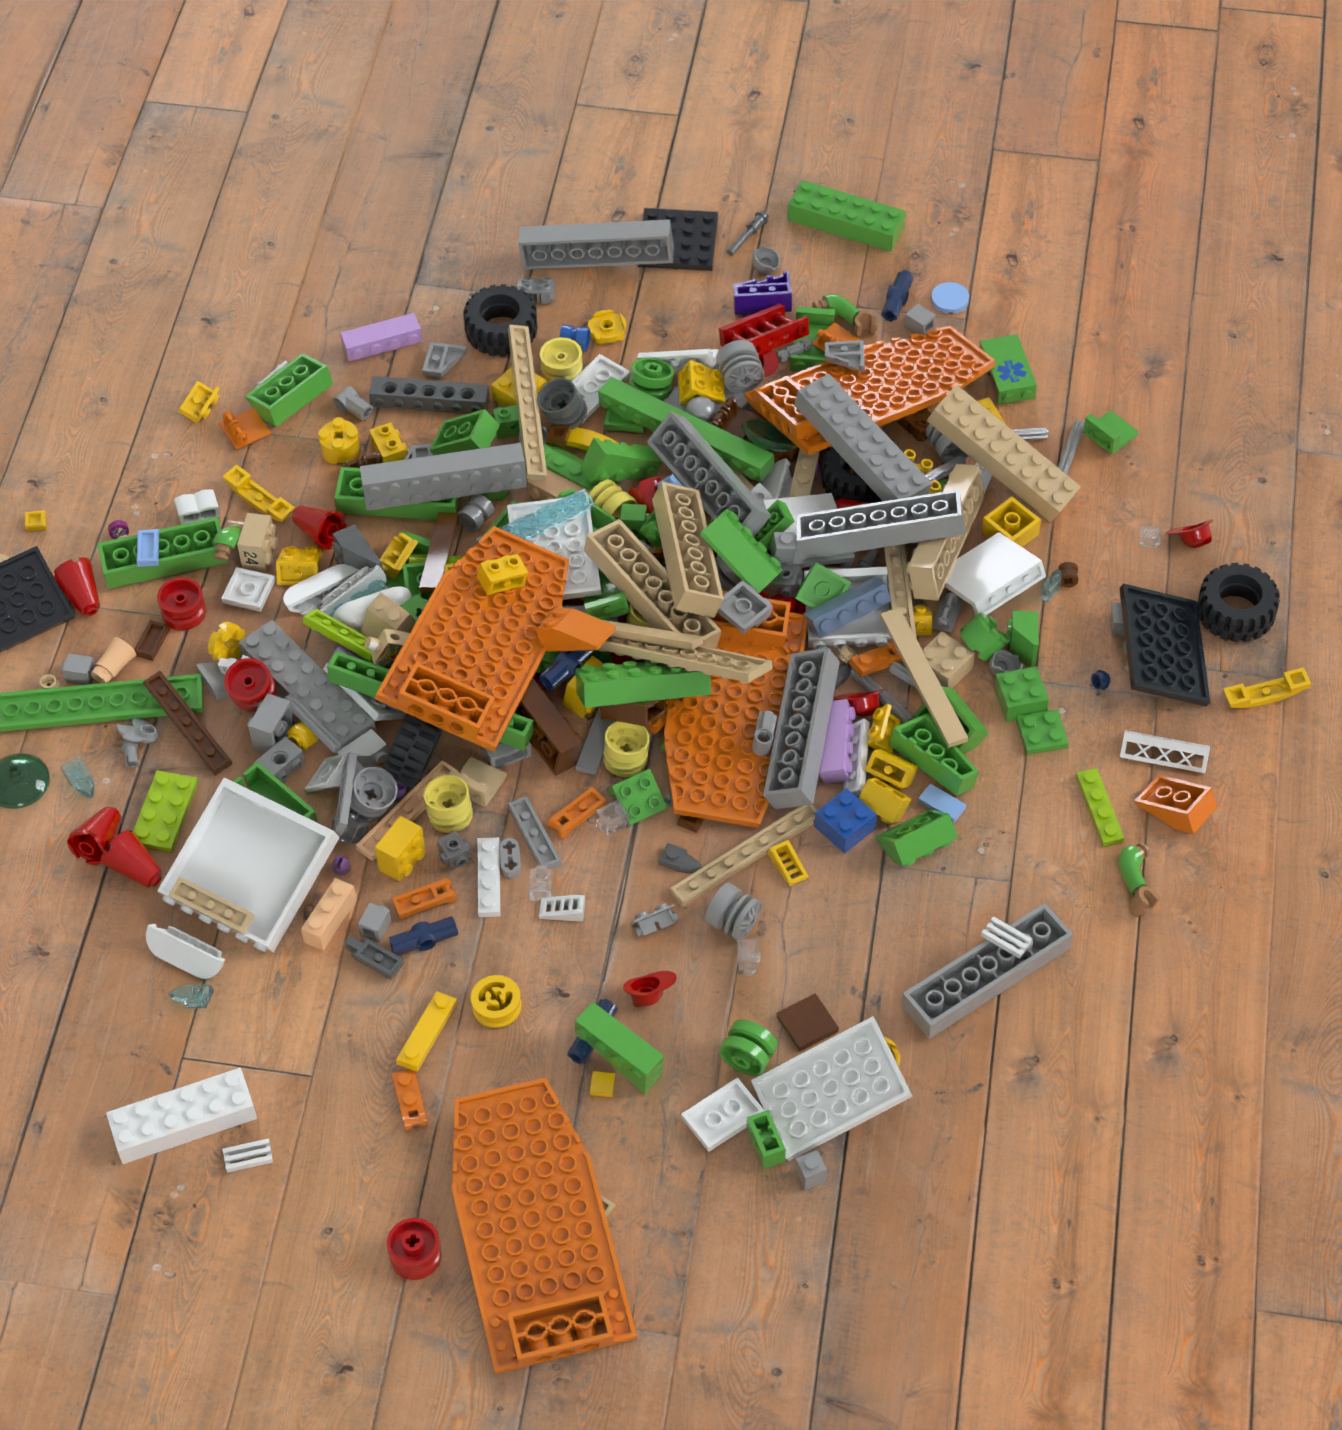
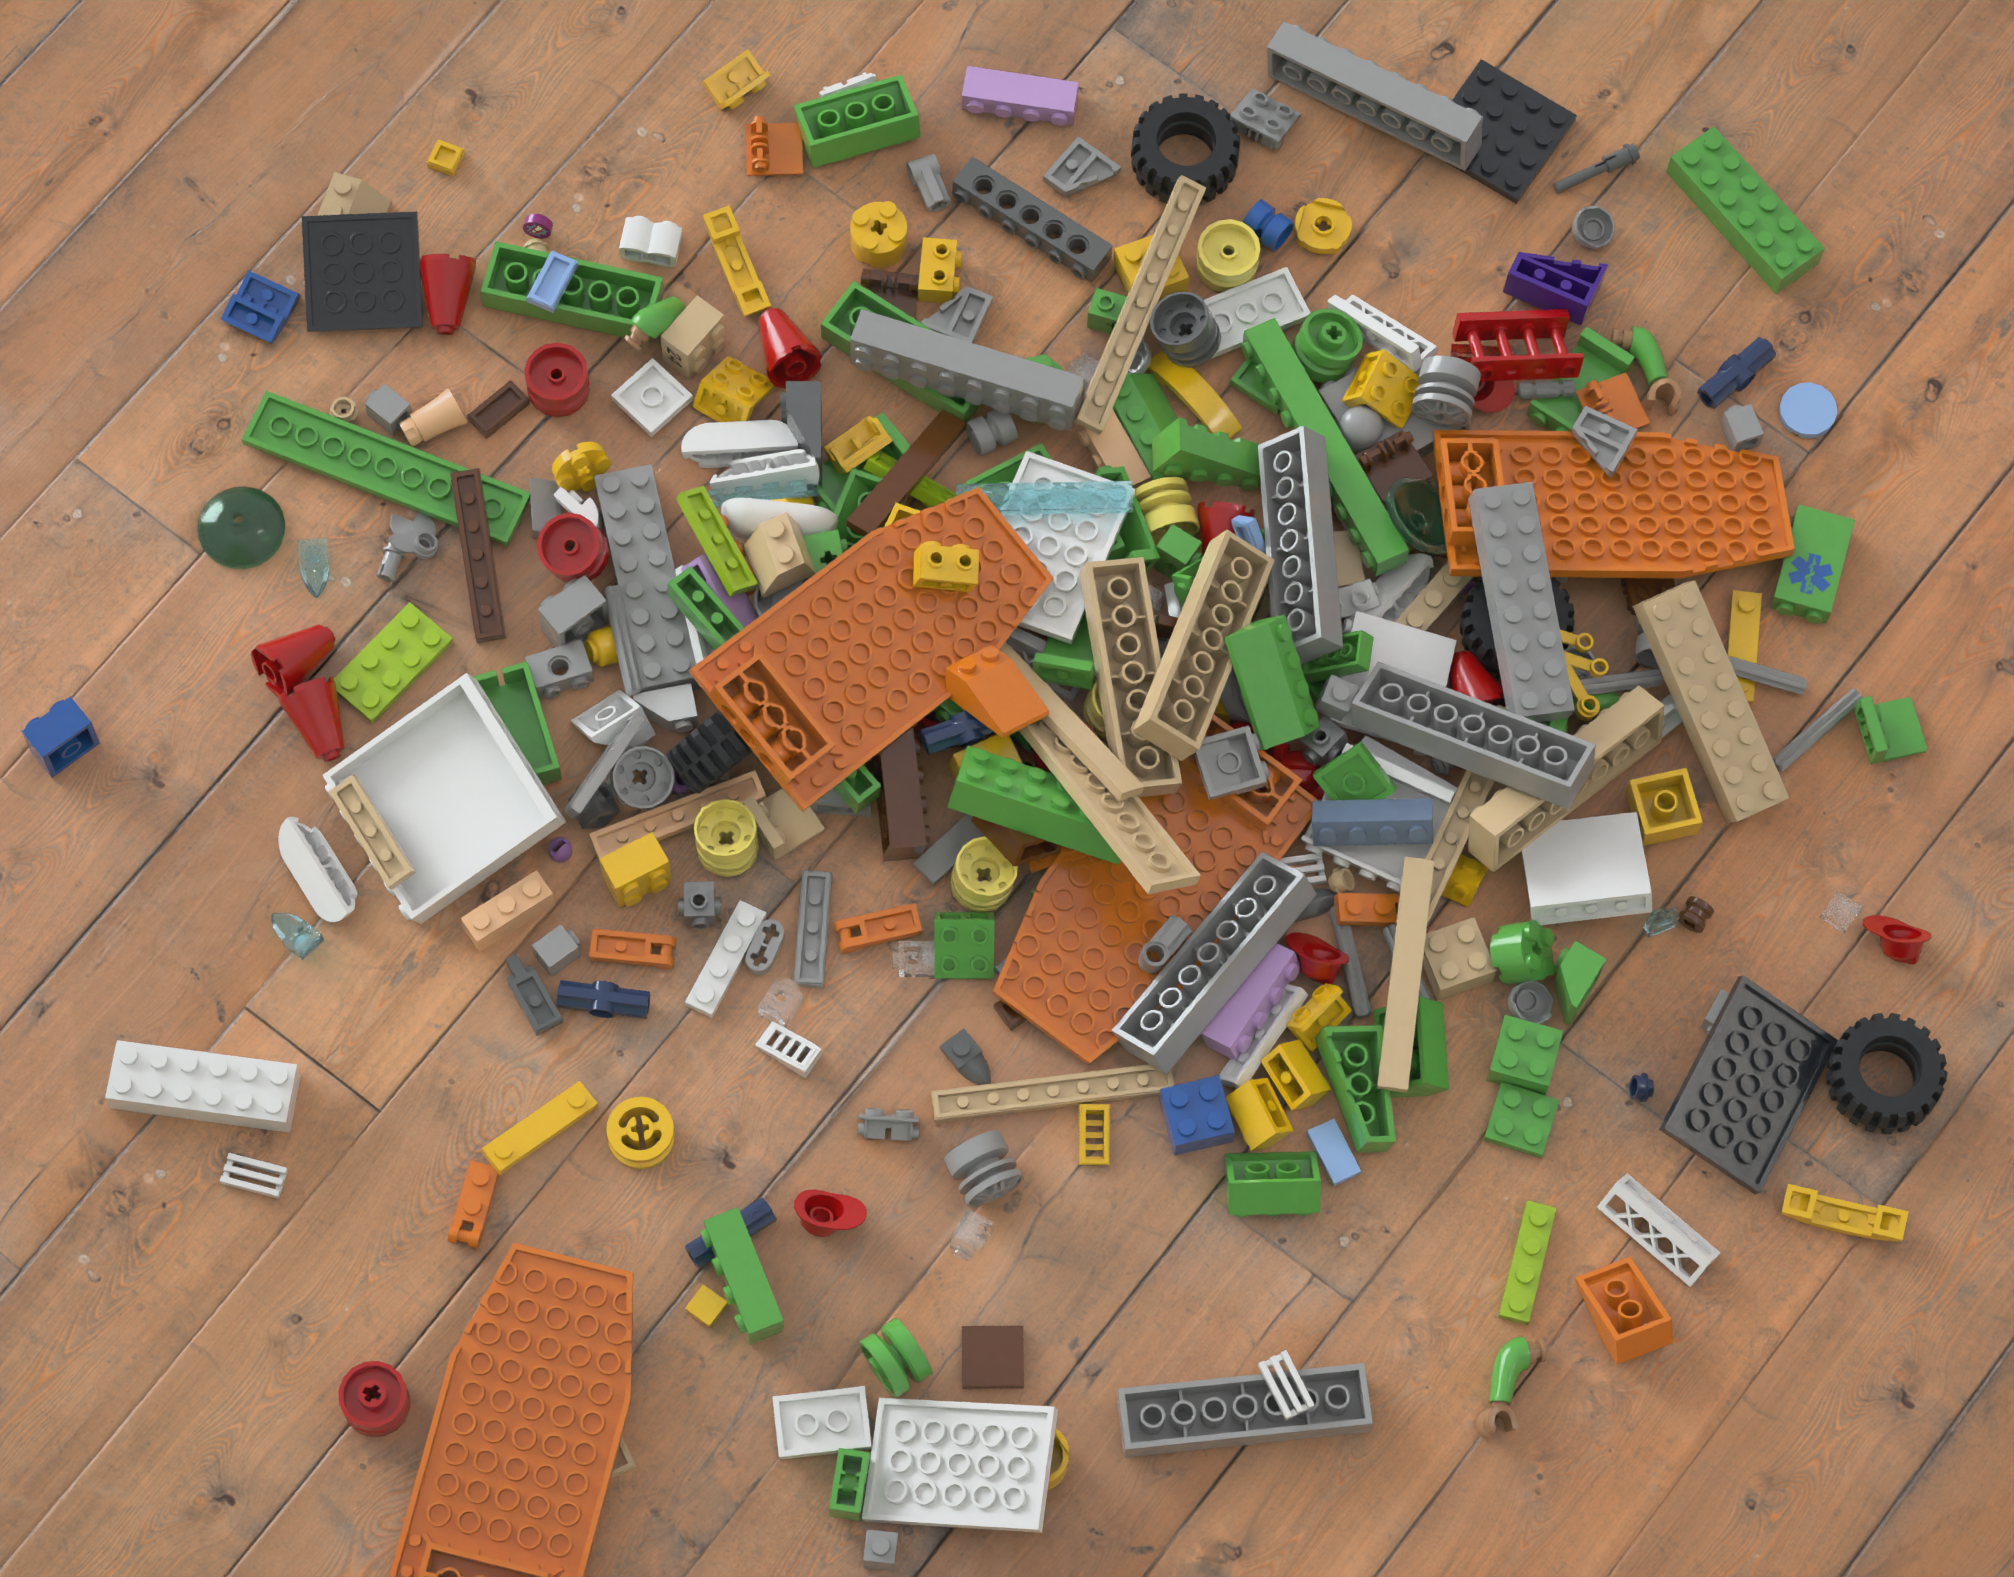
camera: 25 degrees right, 15 degrees up
(386, 647) = (753, 595): tan torso -> none
(465, 433) = (1034, 315): bright green brick -> none
(558, 434) = (1159, 369): reddish brown plate -> none
(947, 613) = (1503, 890): light grey hinge -> none

